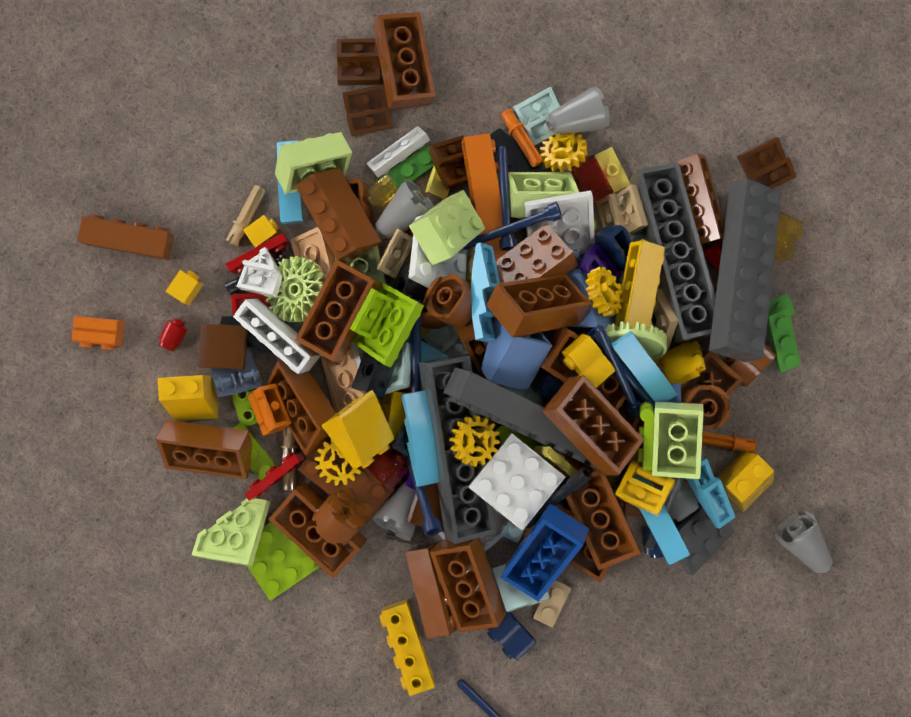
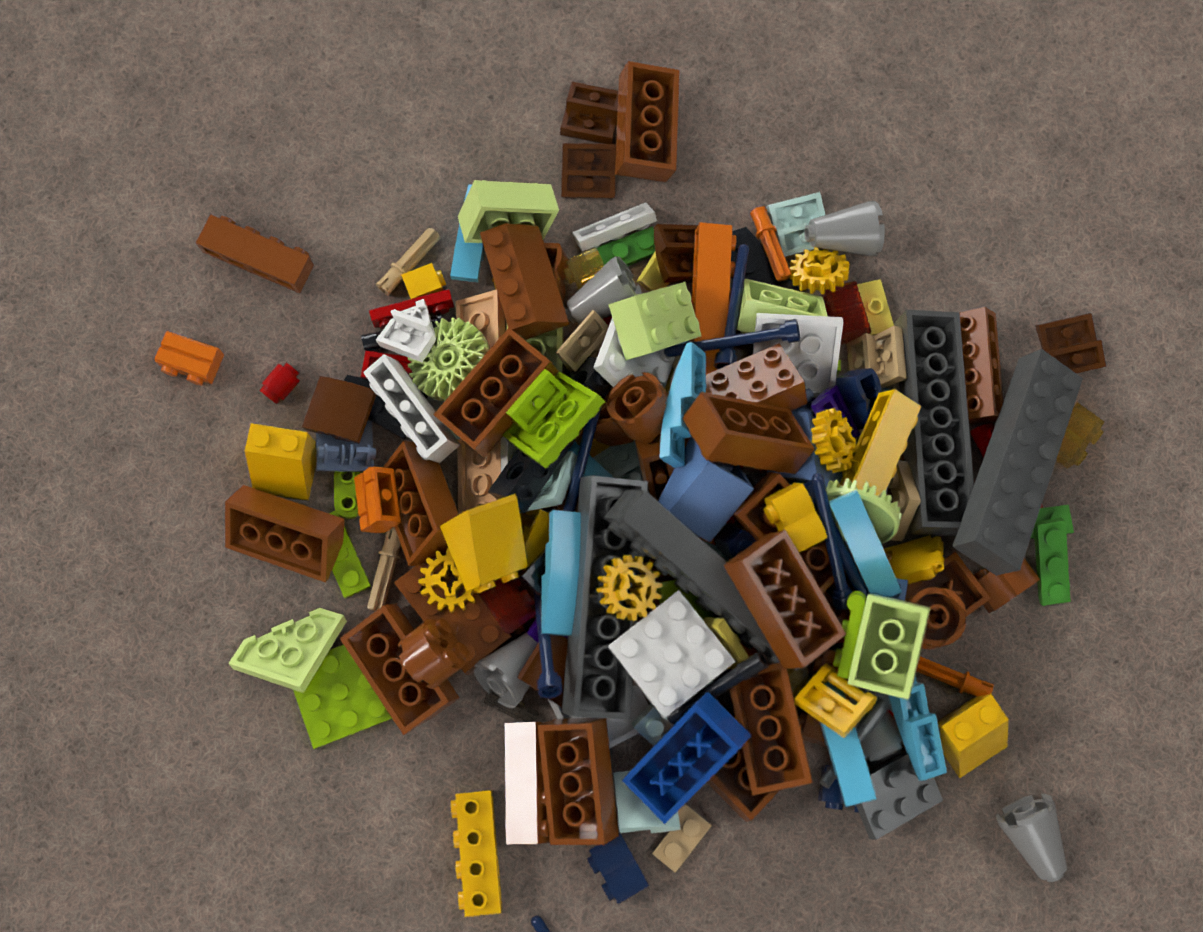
camera: 10 degrees right, 10 degrees down
(185, 286) = (312, 327): yellow brick -> none
(274, 475) = (362, 584): red plate -> none

